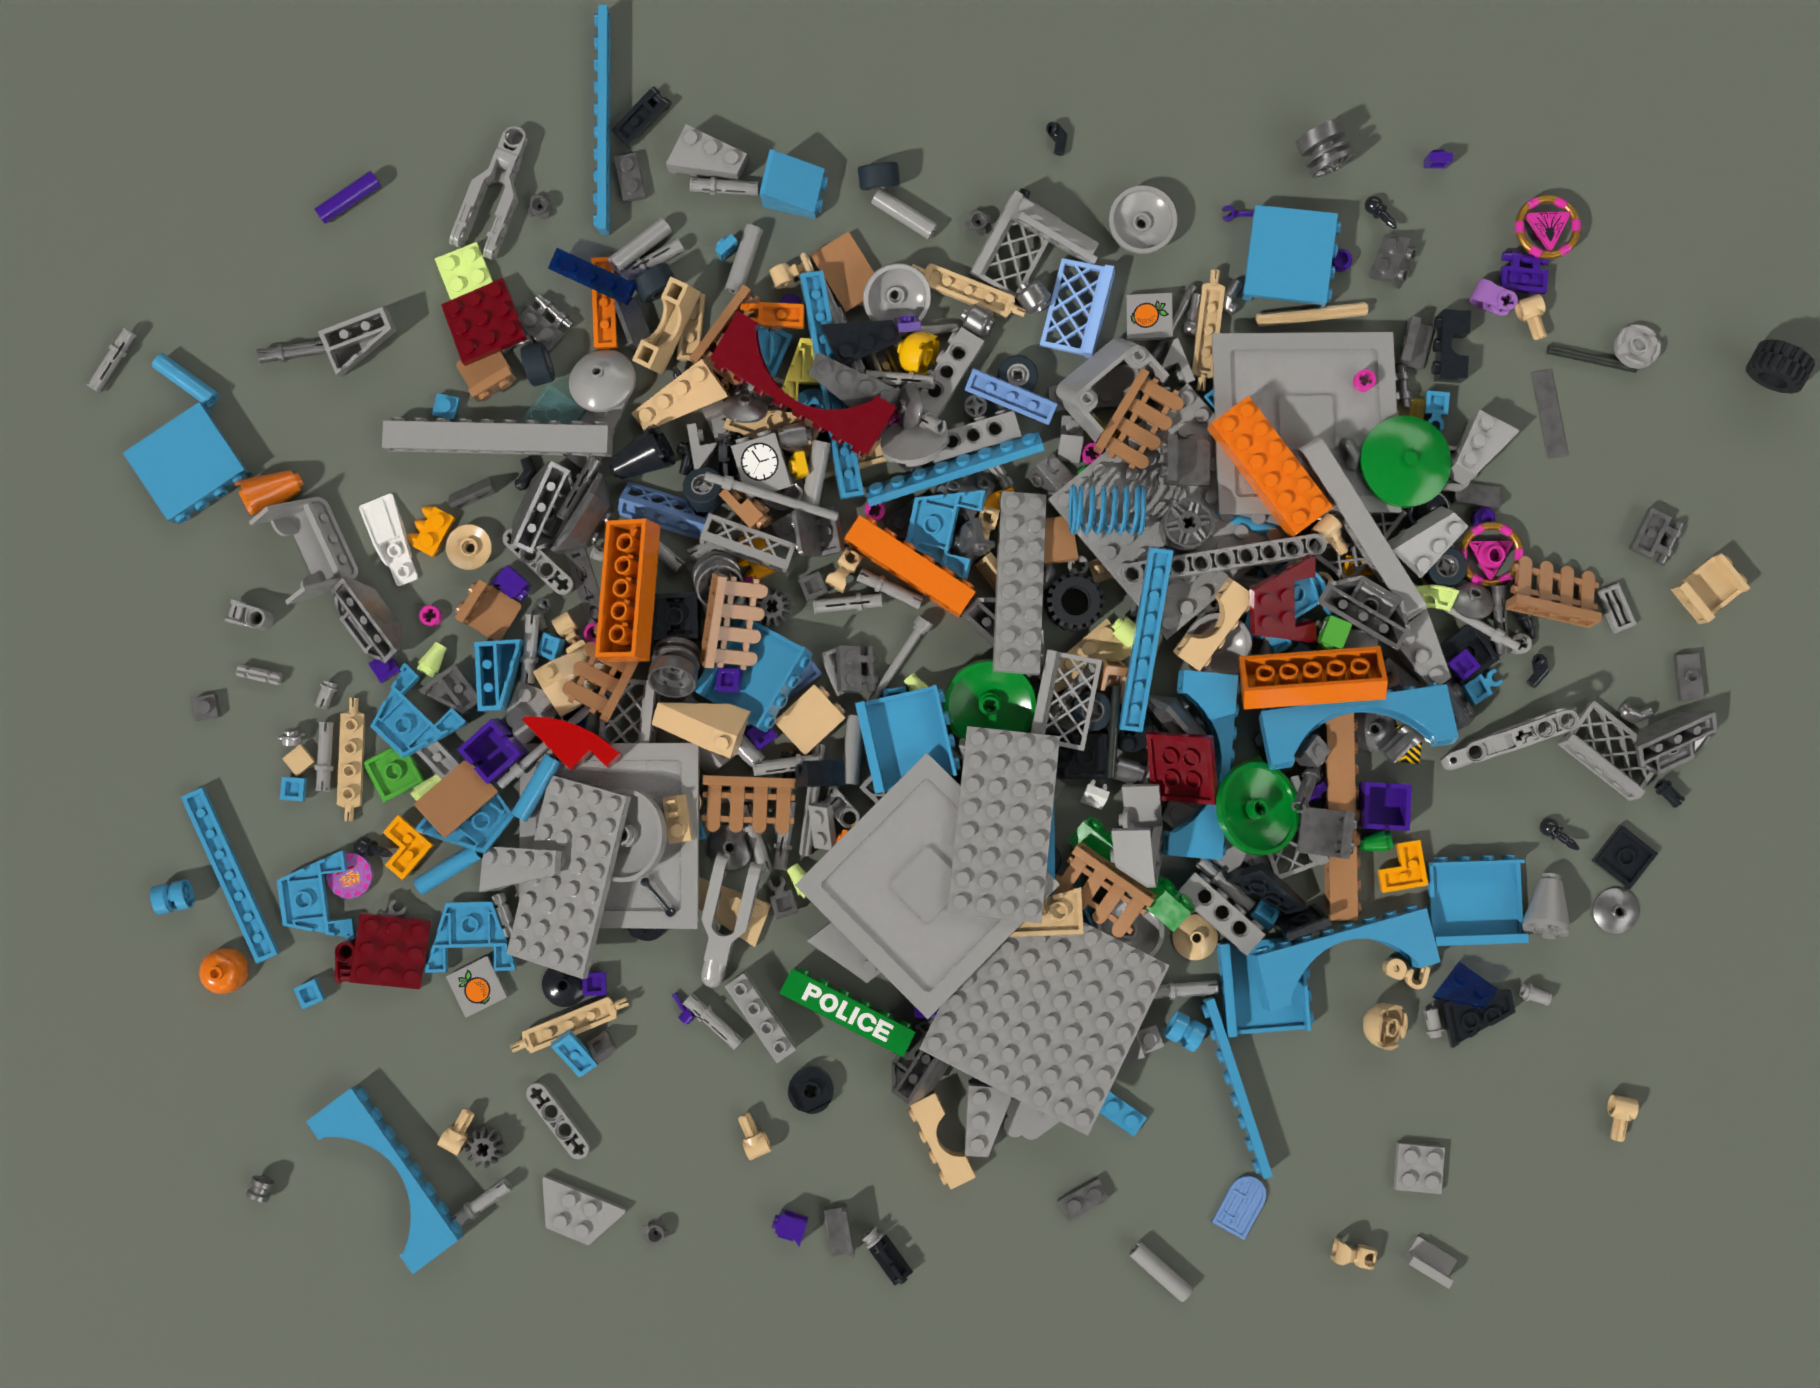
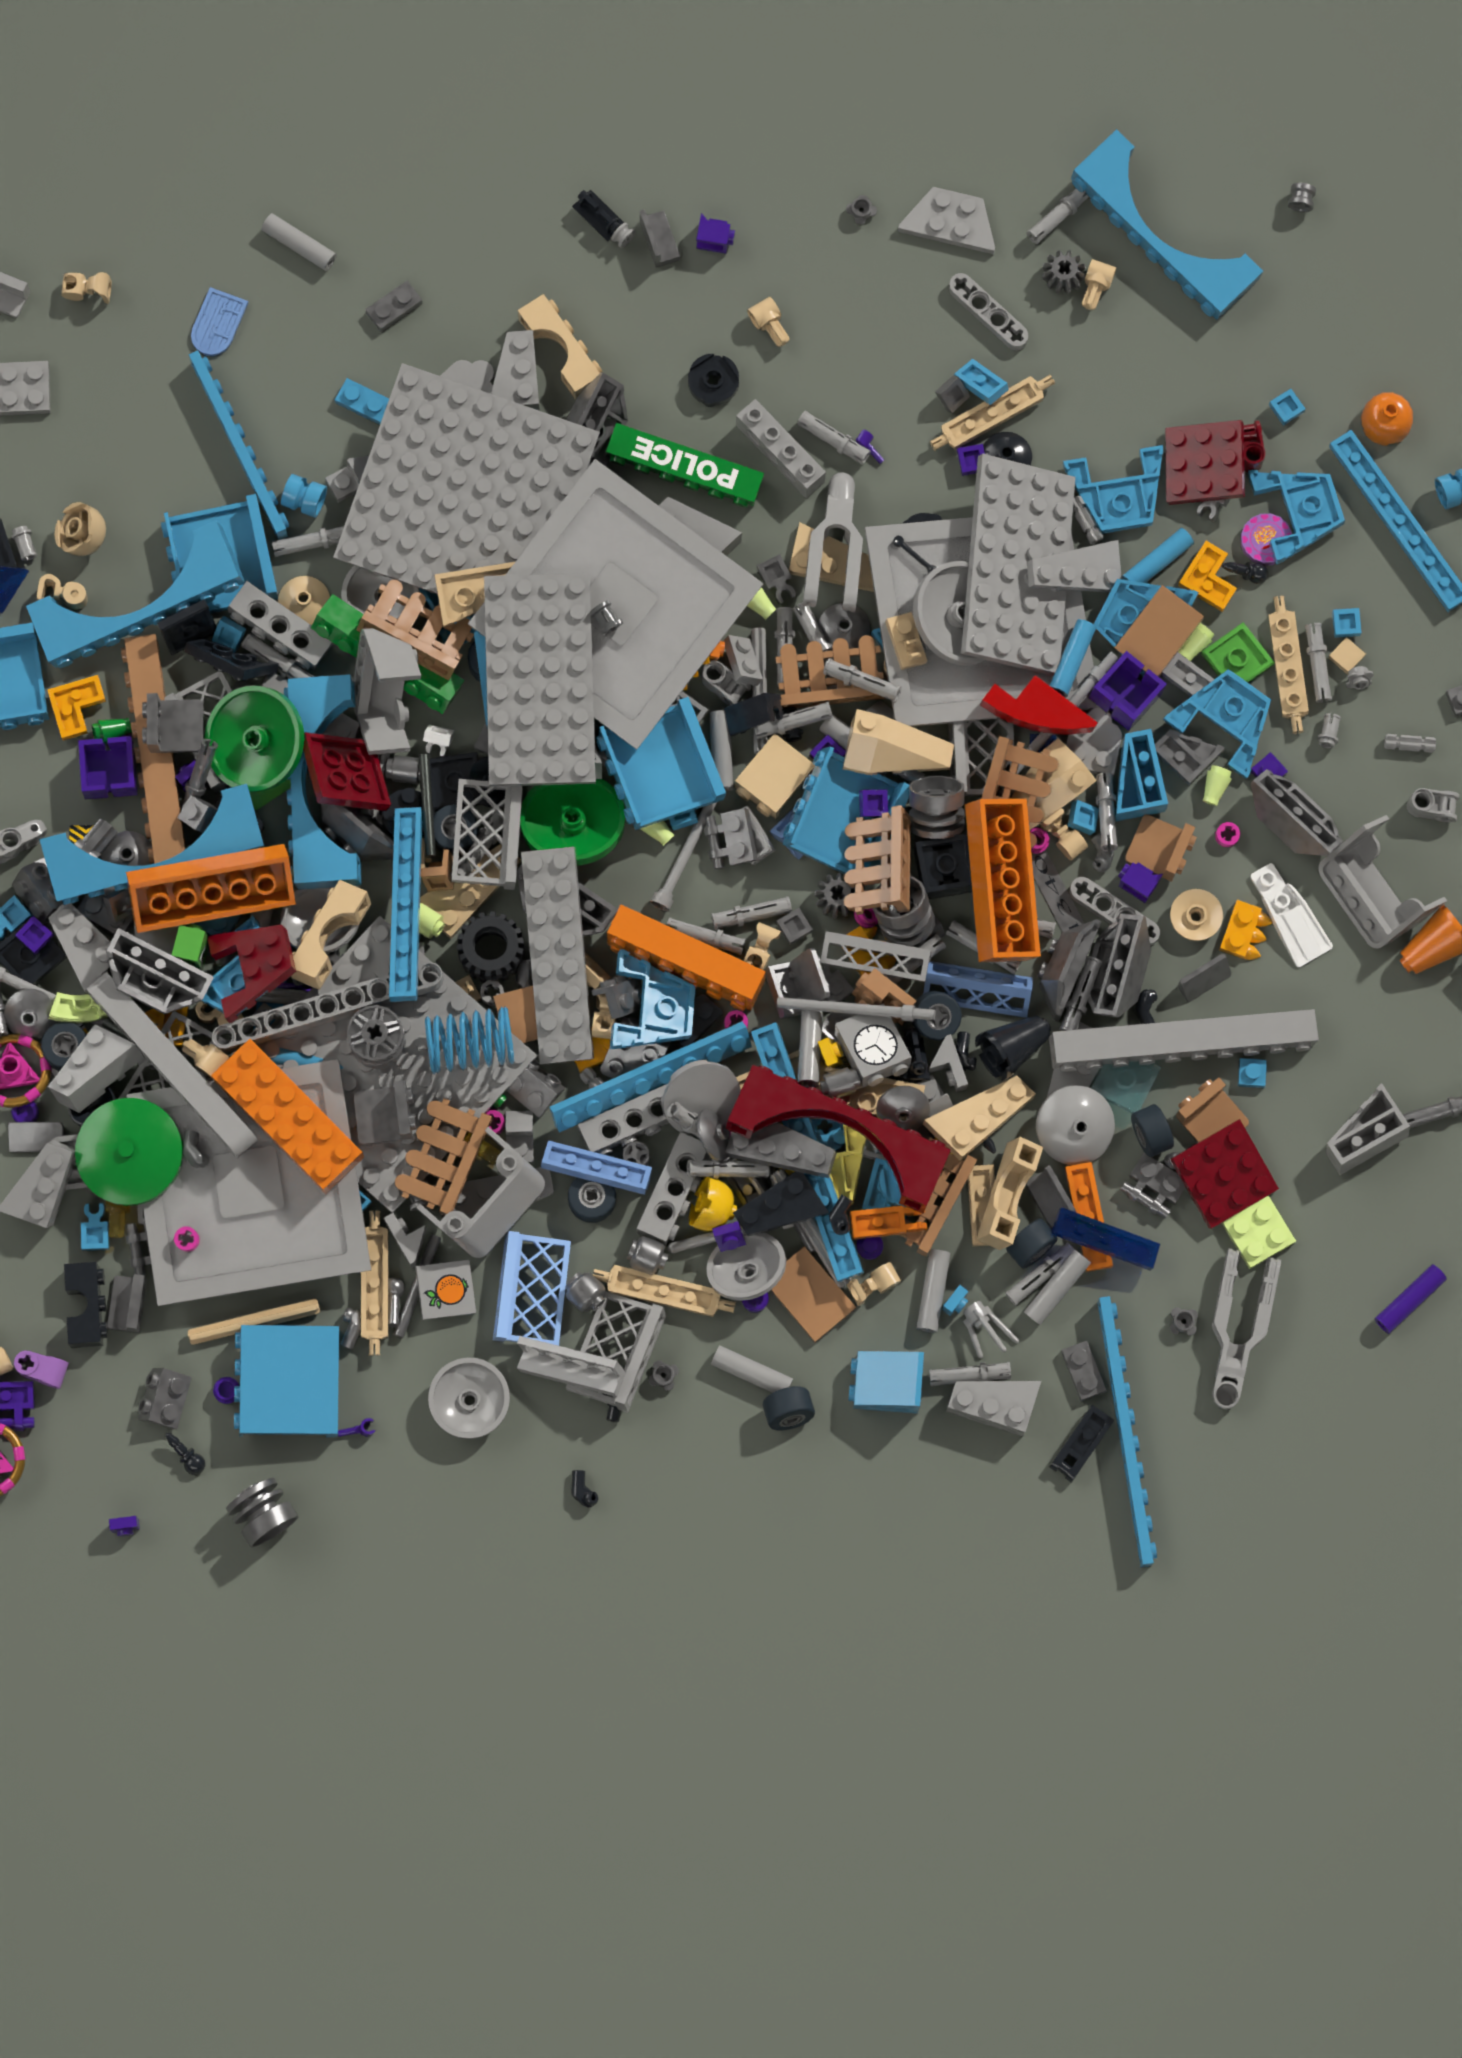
camera: 170 degrees right, 10 degrees down
(477, 986) = (1103, 440): light grey tile -> none
(710, 234) = (979, 1316): none -> light grey plant
(719, 786) = (852, 676): none -> light grey pin
(813, 318) = (838, 1215): none -> black arm
(937, 870) = (599, 611): none -> dark grey bush

